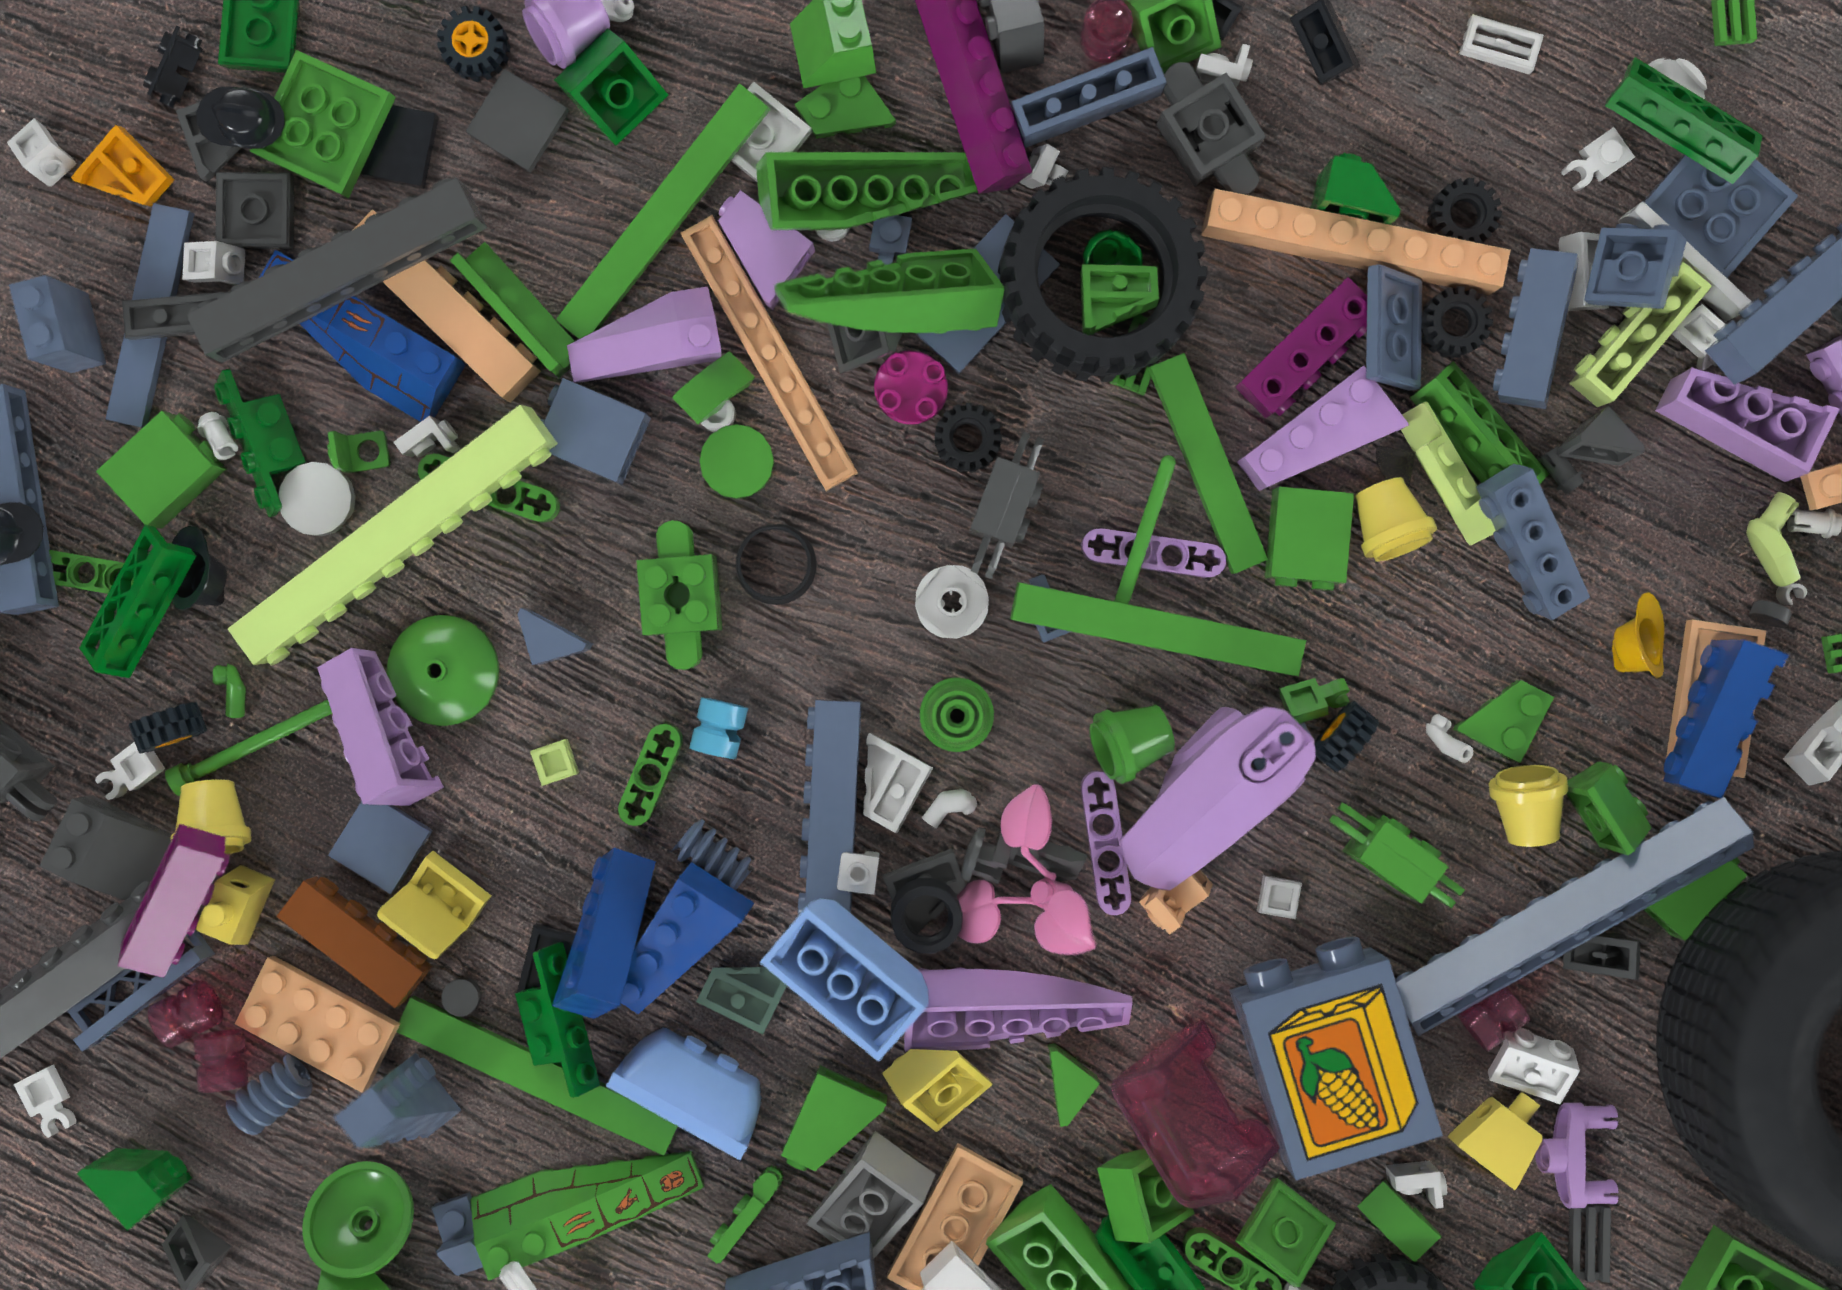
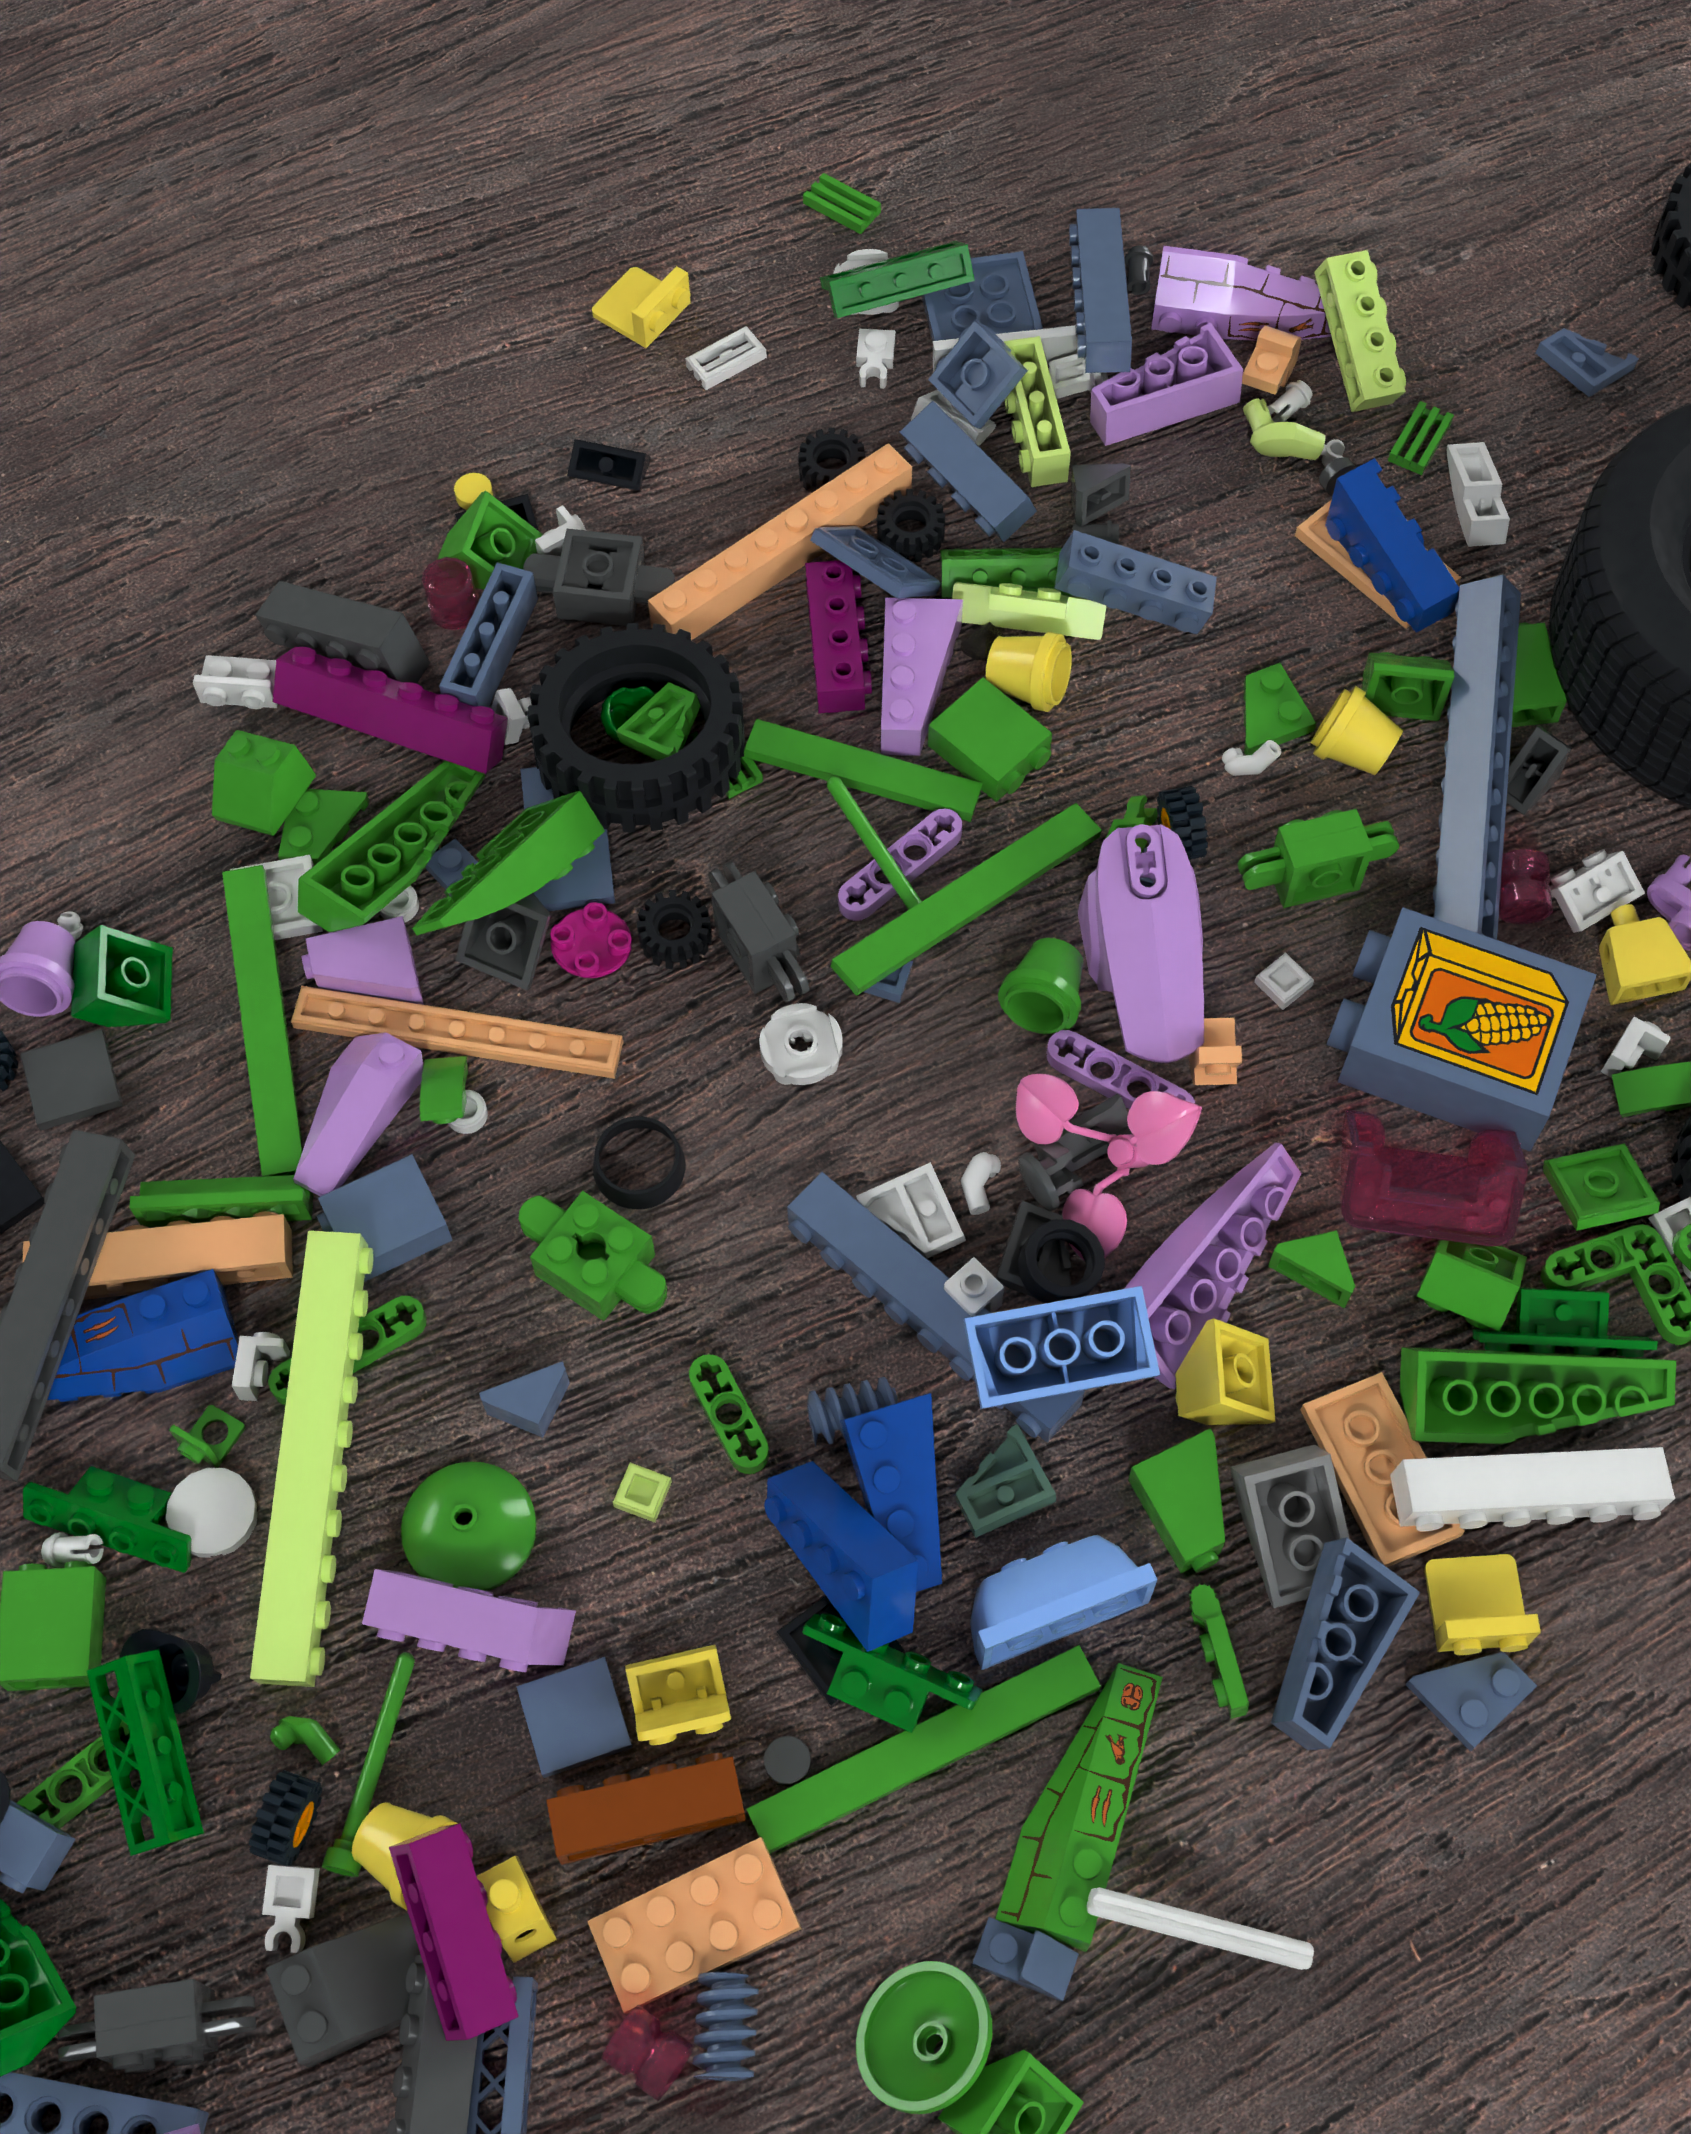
camera: 50 degrees left, 25 degrees down
(180, 1016) = (571, 2049): clear pink wheel -> none
(399, 1106) = (845, 1873): sand blue wedge -> none
(718, 728) = (735, 1308): medium azure wheel -> none
(736, 461) = (522, 1126): bright green tile -> none
(950, 695) = (900, 1124): bright green piece -> none
(1354, 190) = (741, 507): green slope -> none
(1640, 641) = (1283, 576): yellow piece -> none

